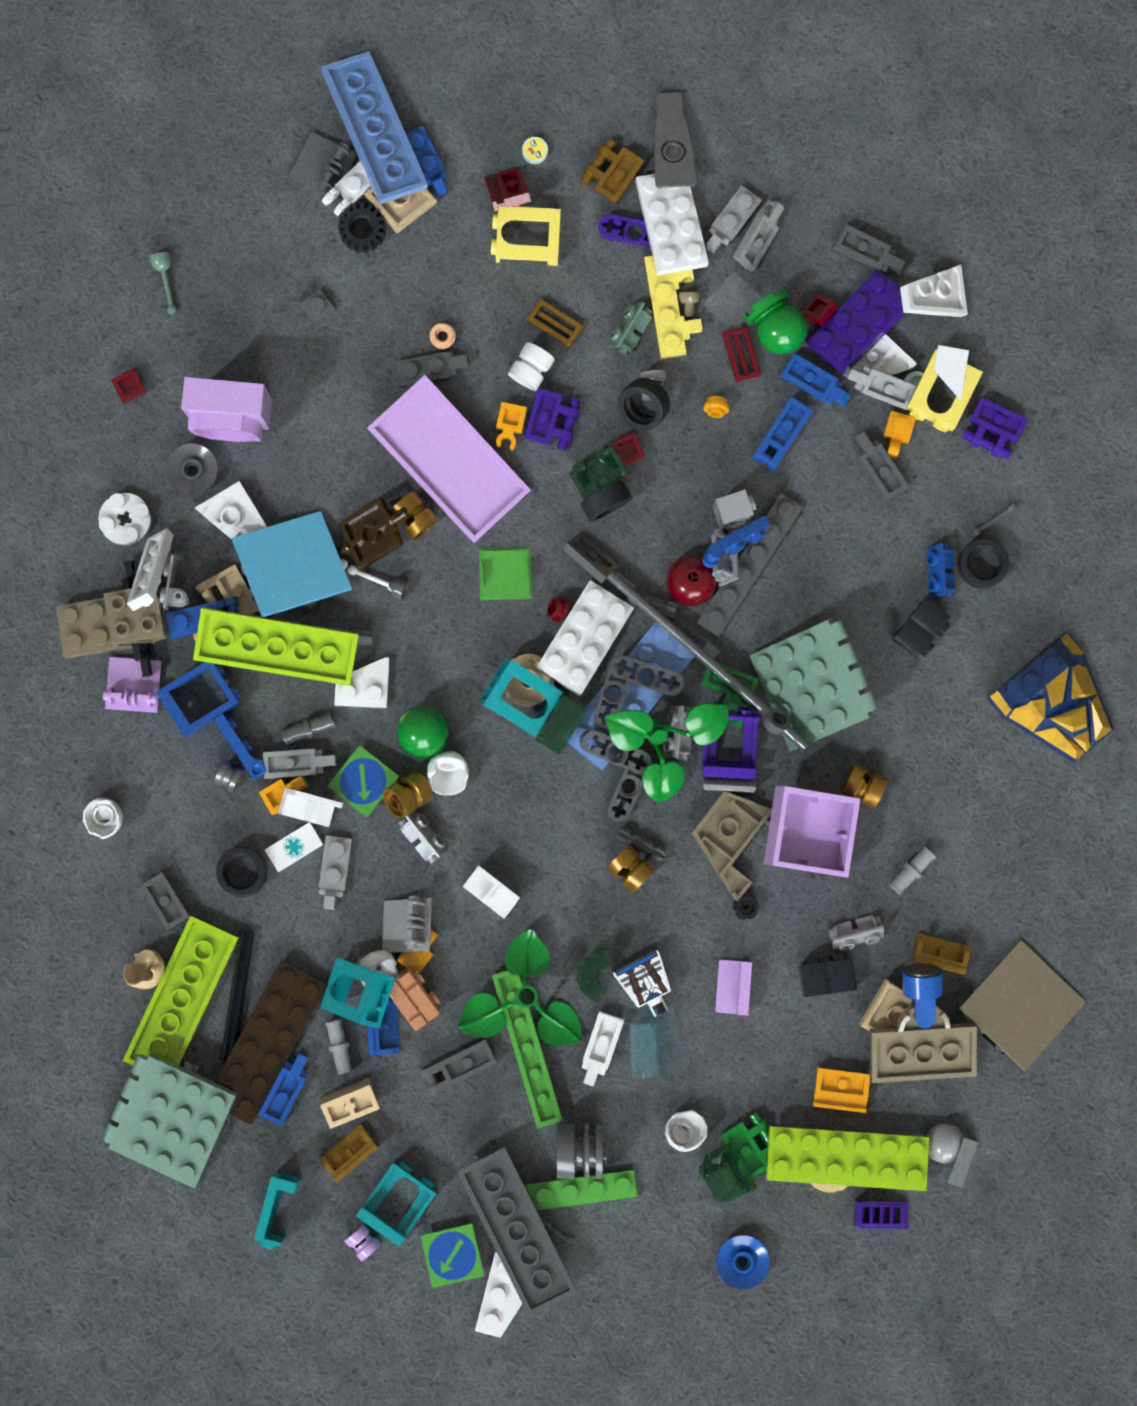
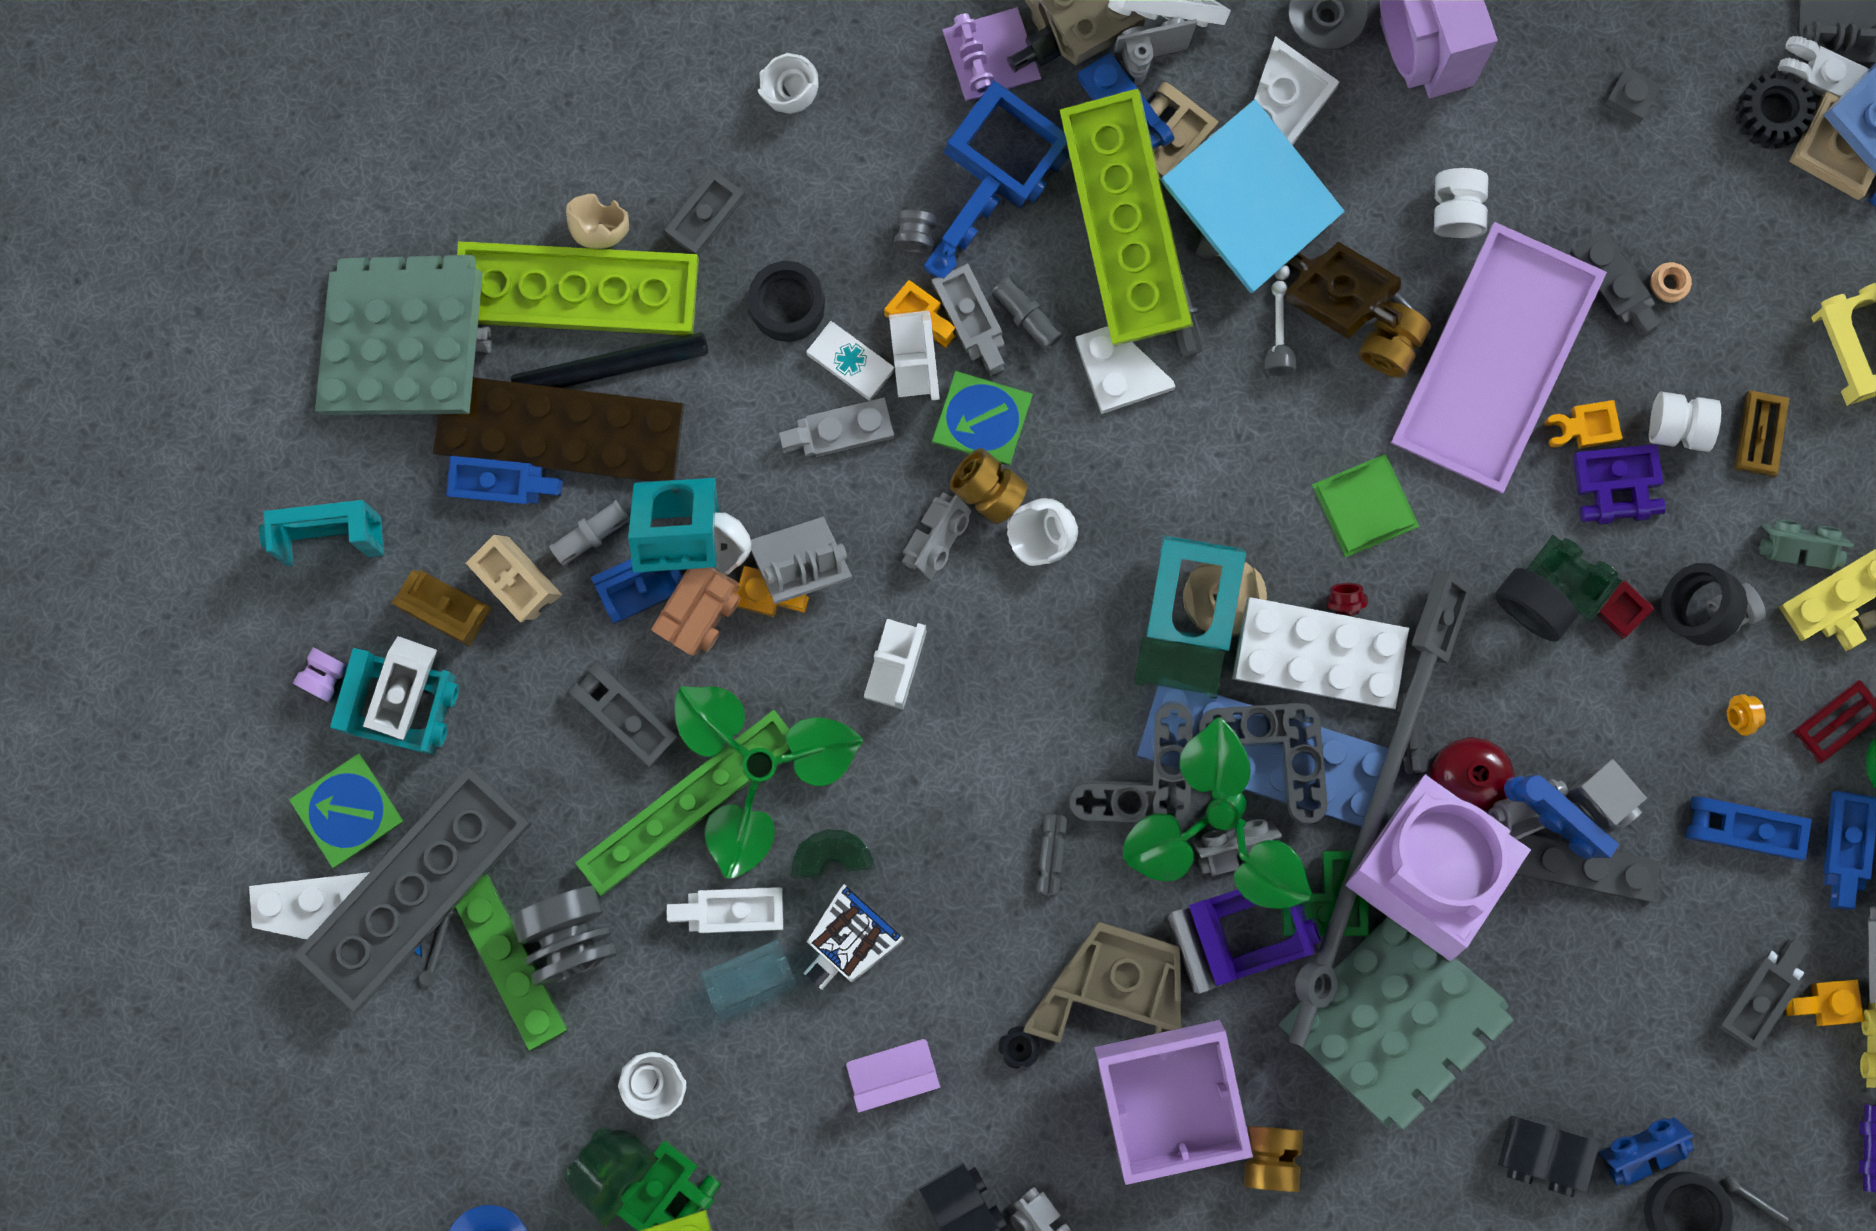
camera: 75 degrees right, 5 degrees down
(345, 440) = (1461, 200): none -> white wheel
(392, 1195) = (400, 687): none -> white brick
(422, 731) = (1088, 472): green tile -> none
(631, 868) = (1009, 852): pearl gold wheel -> none
(737, 624) = (1438, 867): none -> lavender container

